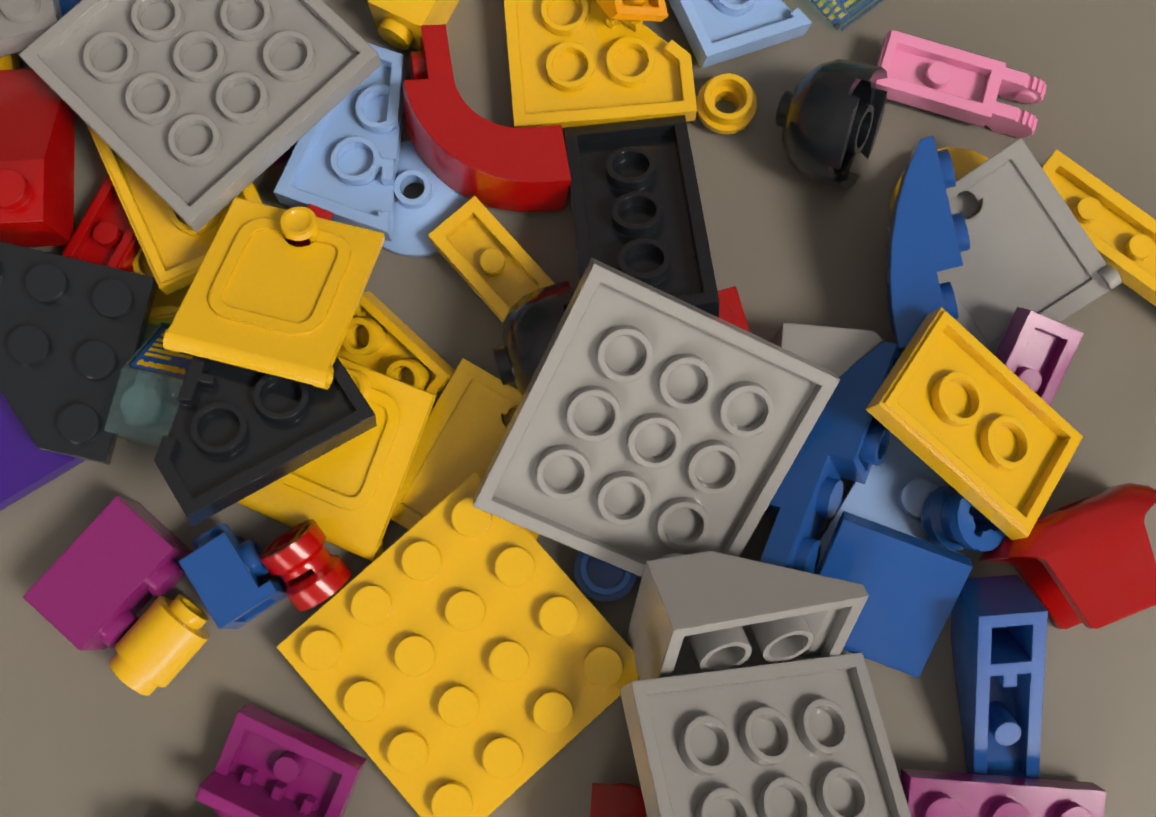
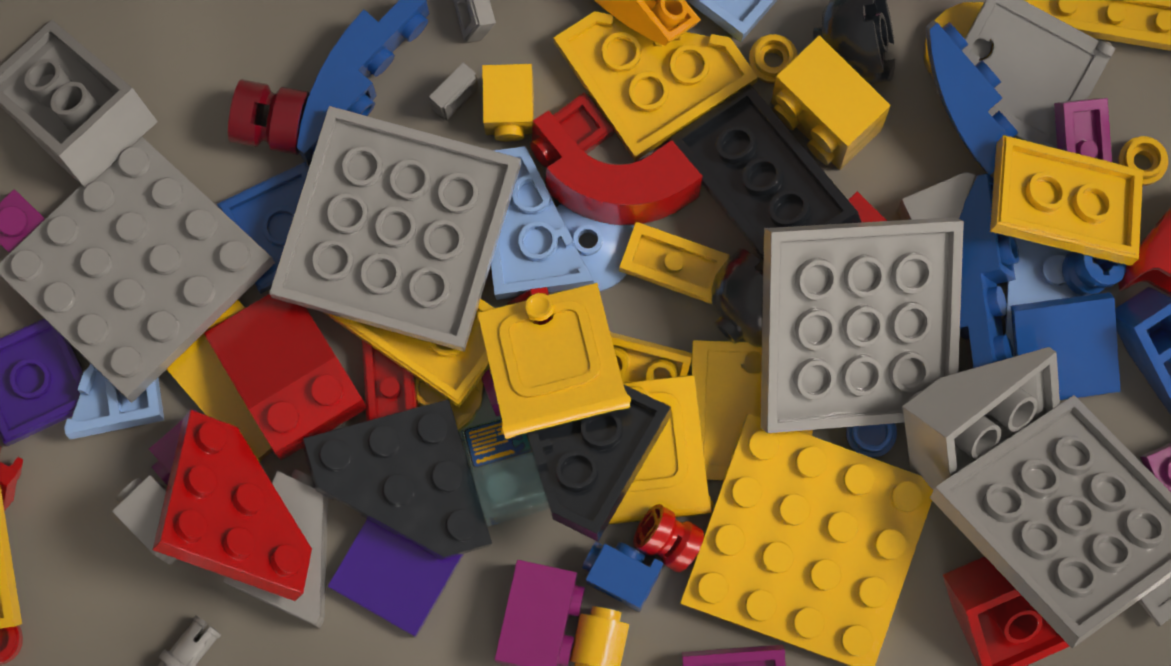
camera: 25 degrees left, 0 degrees up
(480, 69) = (584, 123): none -> red tile
(758, 172) = (828, 104): none -> yellow brick
(1100, 424) = (1152, 150): none -> yellow plate

